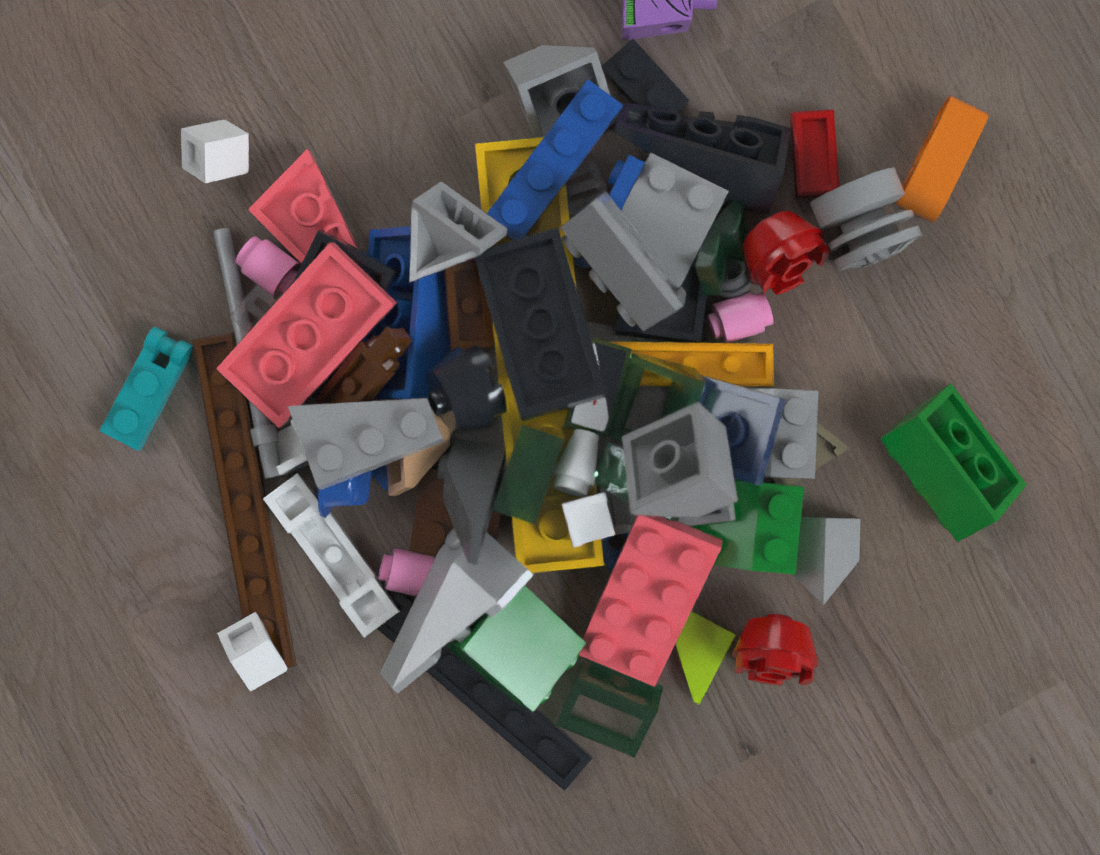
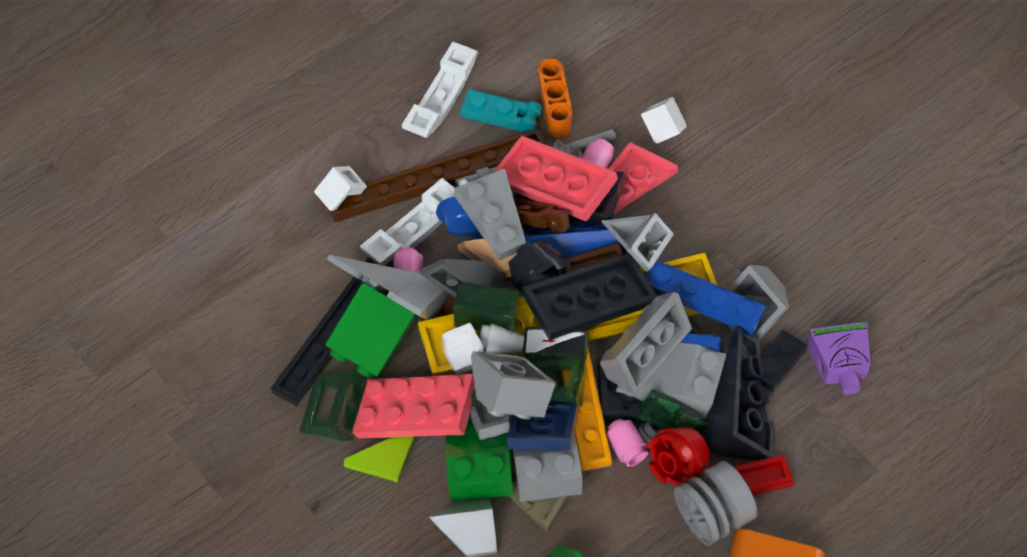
camera: 85 degrees right, 30 degrees down
(98, 473) = (443, 92): none -> white slope
(124, 298) = (555, 98): none -> orange beam
(776, 650) = (390, 497): red cone -> none

